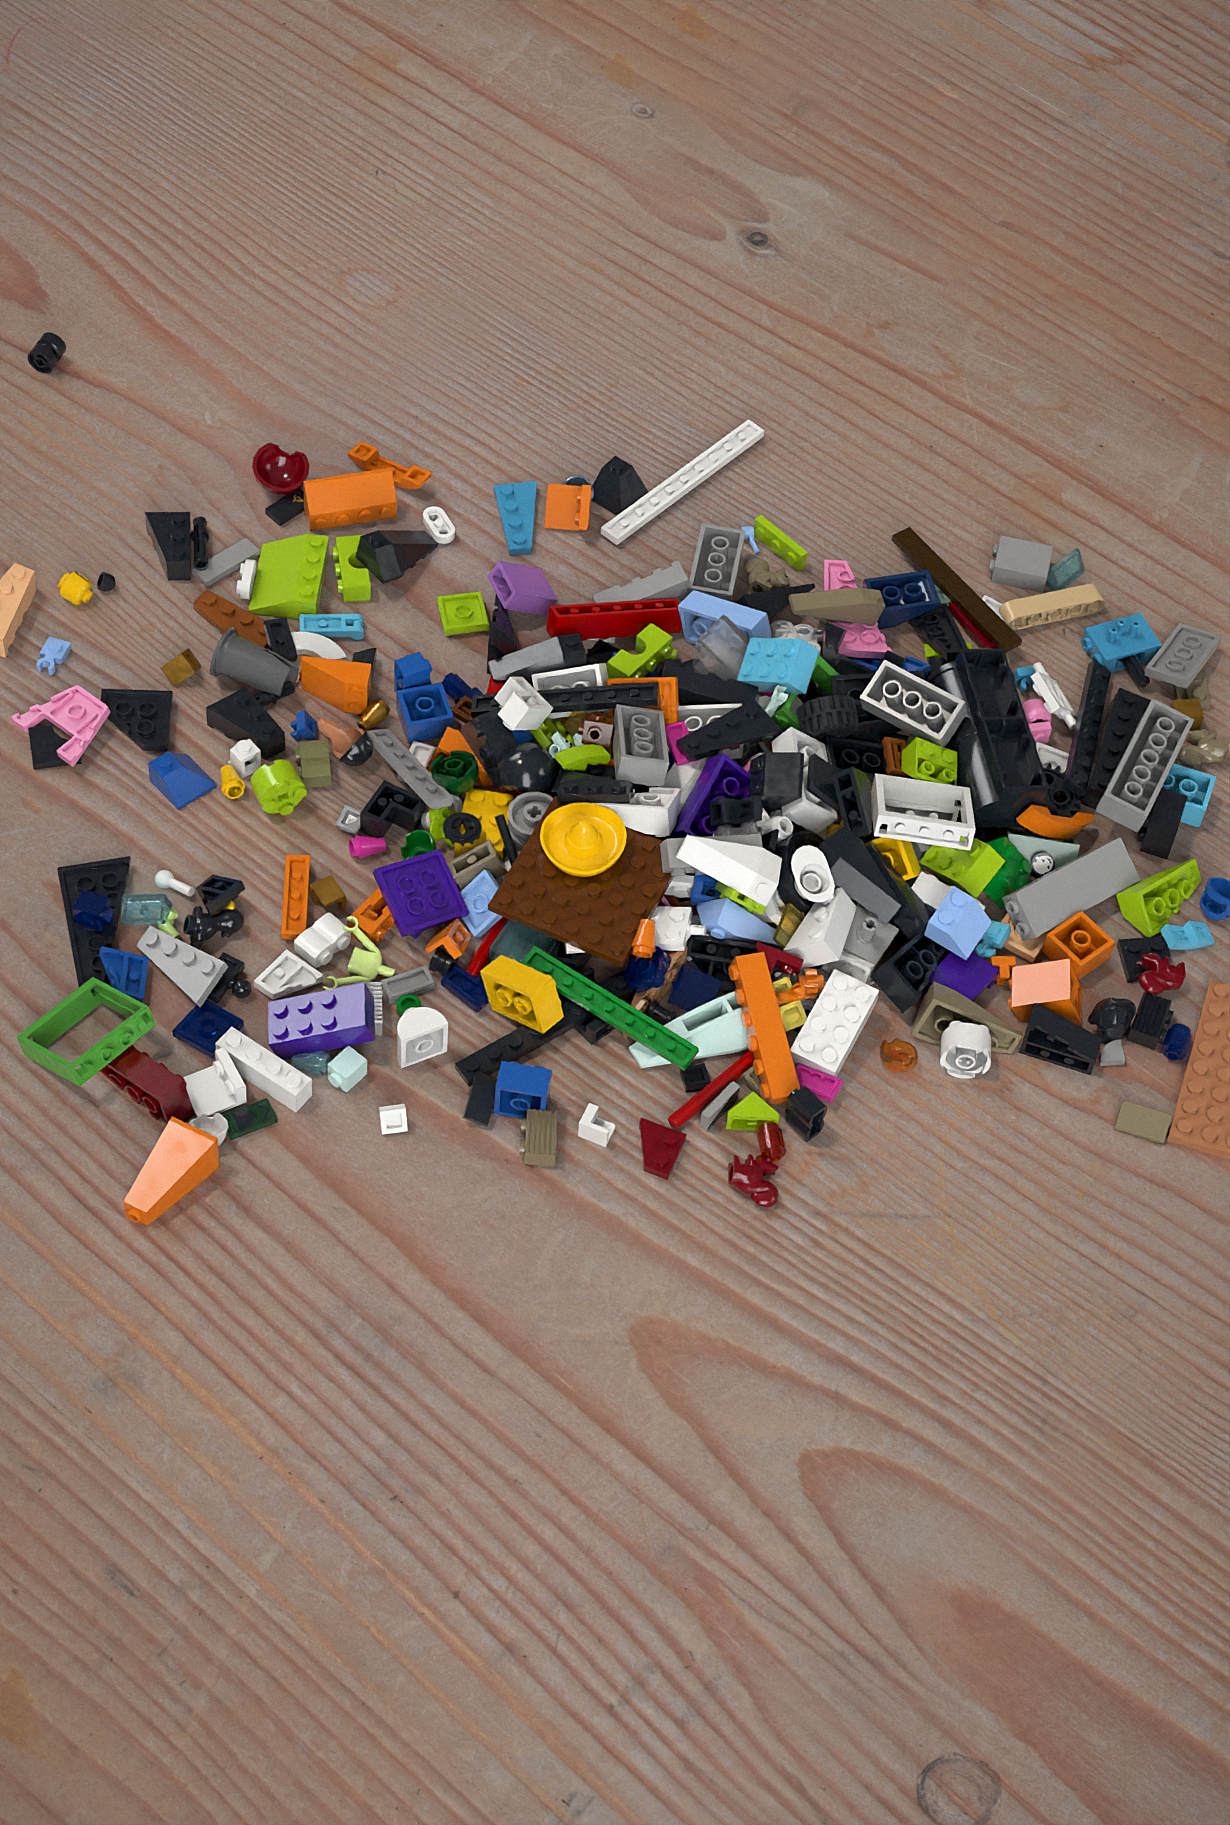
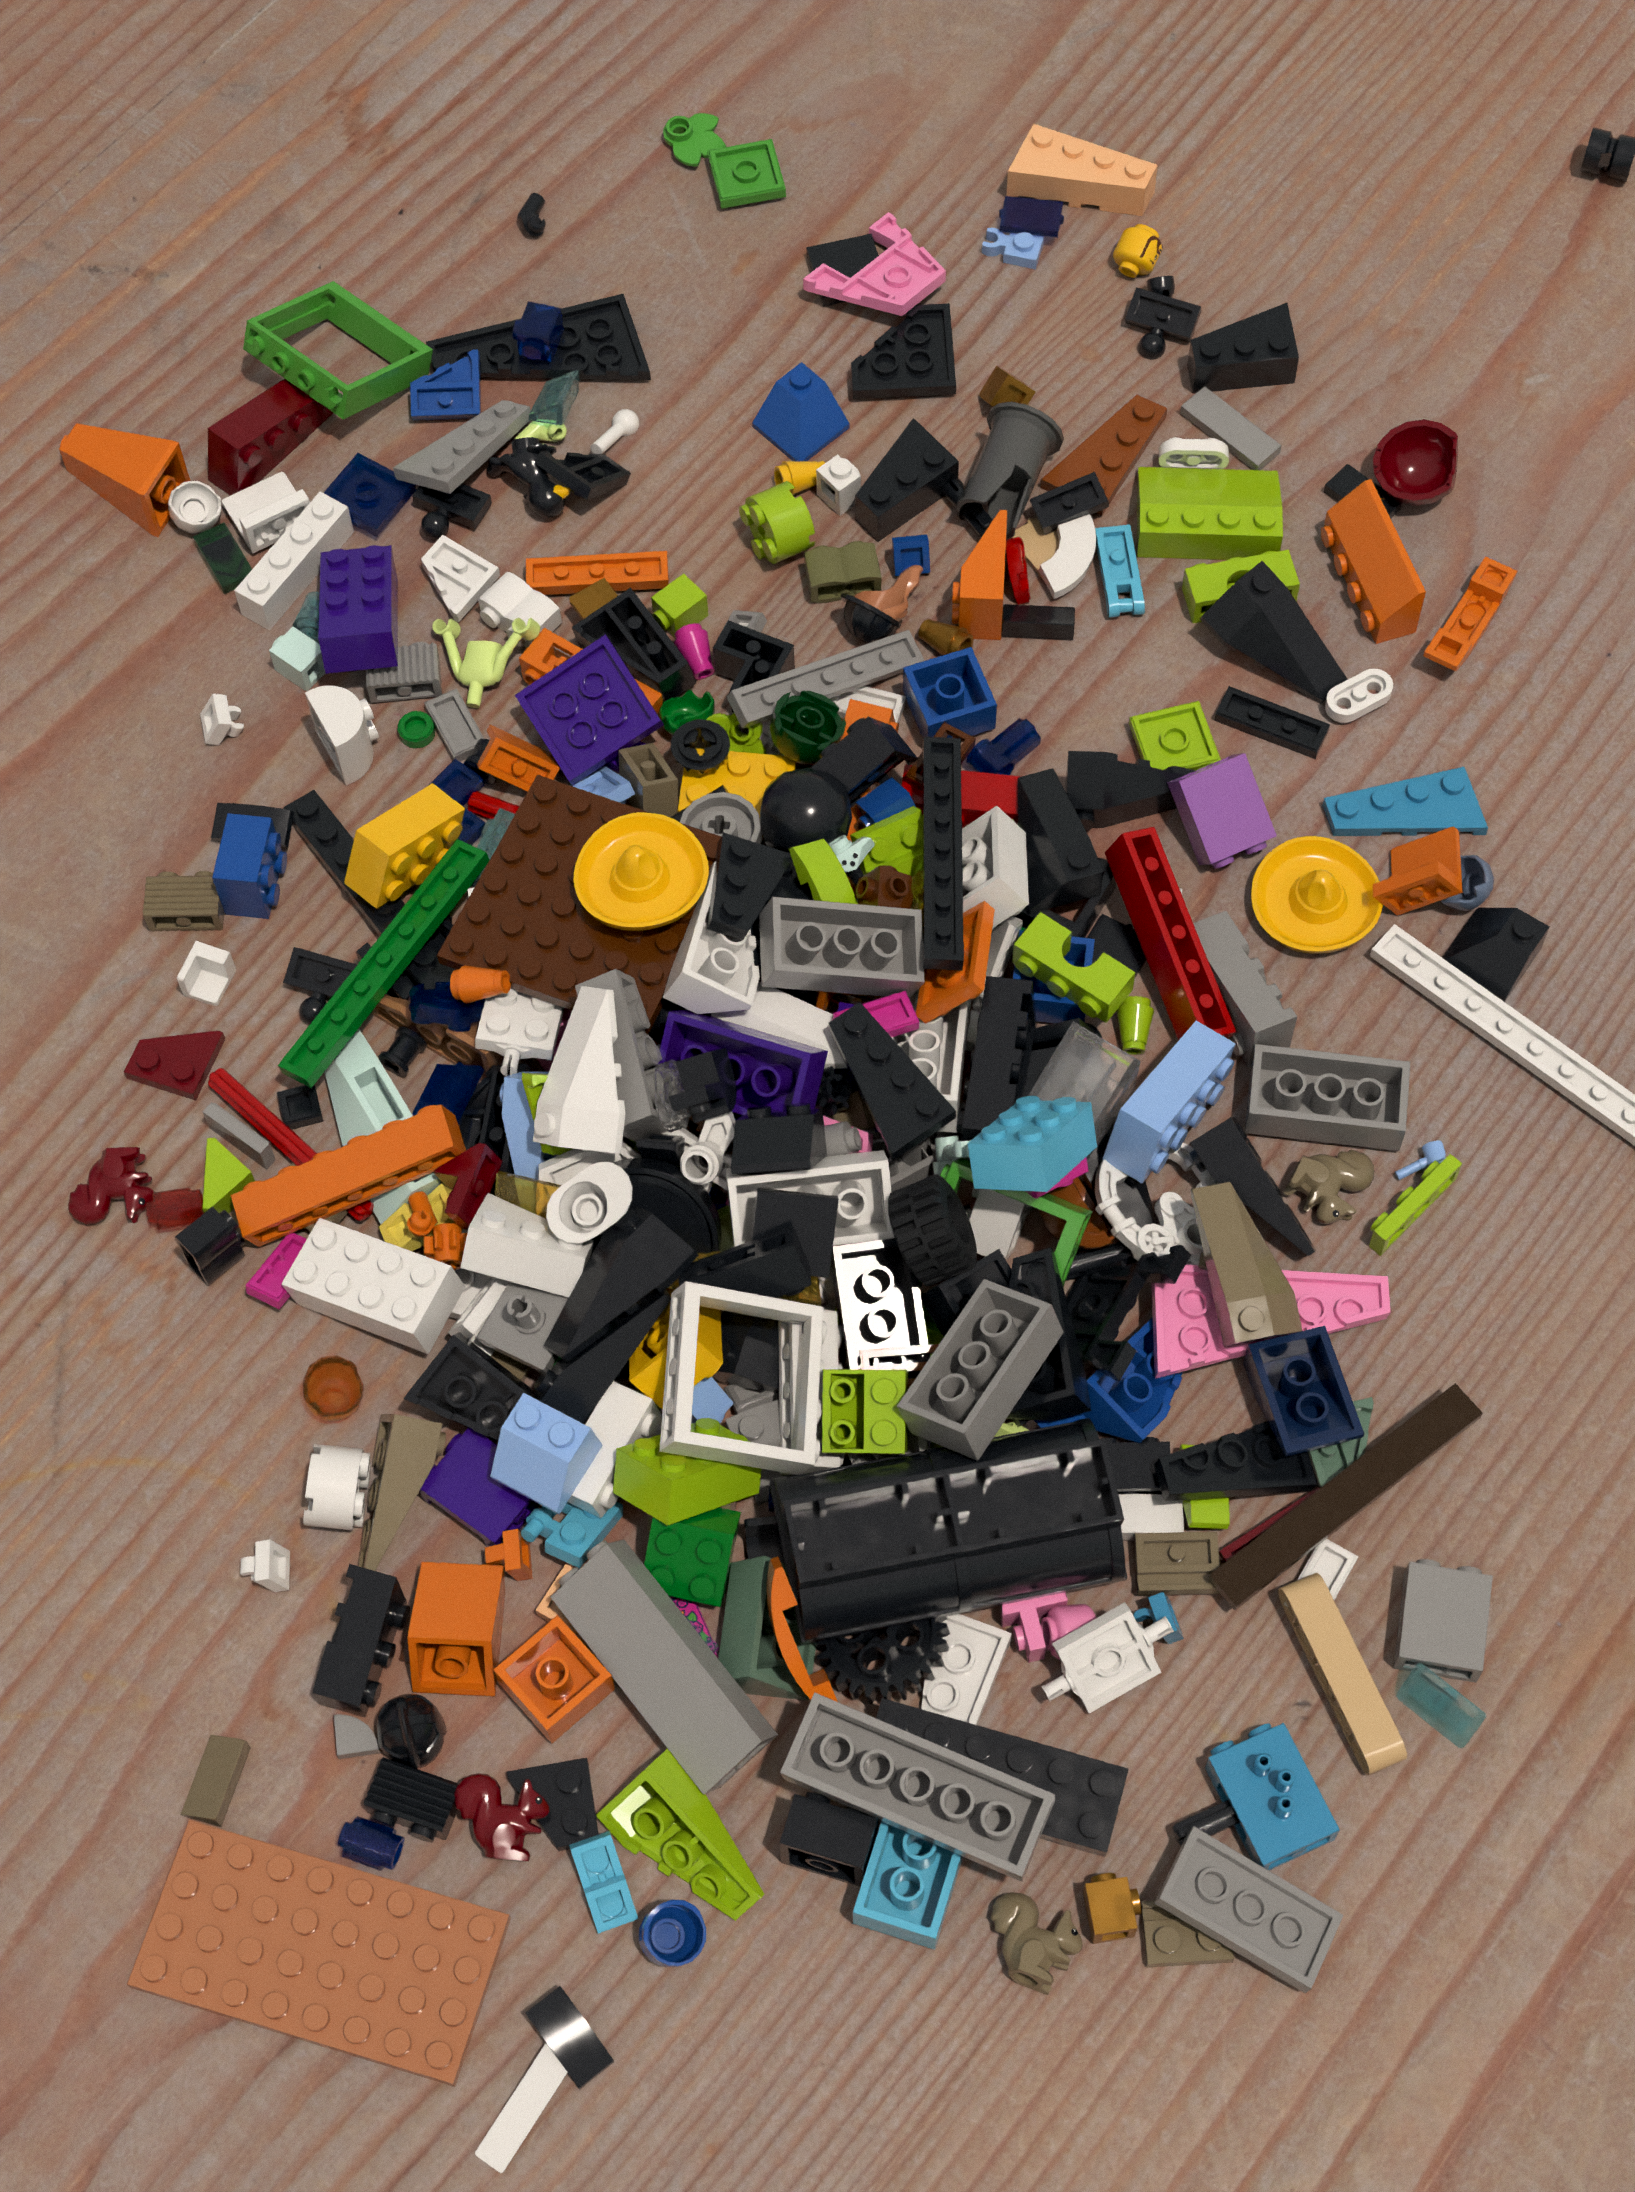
camera: 95 degrees right, 10 degrees up
(30, 642) = (1031, 216): none -> clear blue piece
(132, 582) = (1161, 317): none -> black plate
(200, 537) = (1255, 388): black pin -> none
(331, 851) = (679, 605): none -> lime brick
(356, 869) = (639, 642): none -> black wedge
(411, 672) = (1010, 671): blue brick -> none
(450, 569) = (1272, 722): none -> black tile
(521, 705) = (901, 785): white brick -> none
(579, 559) = (1315, 895): none -> yellow hat
(604, 1059) = (316, 974): none -> black plate
(1012, 1092) = (269, 1566): none -> white tile
(1042, 863) = (721, 1622): tile -> none
(1087, 728) = (1043, 1715): black plate -> none

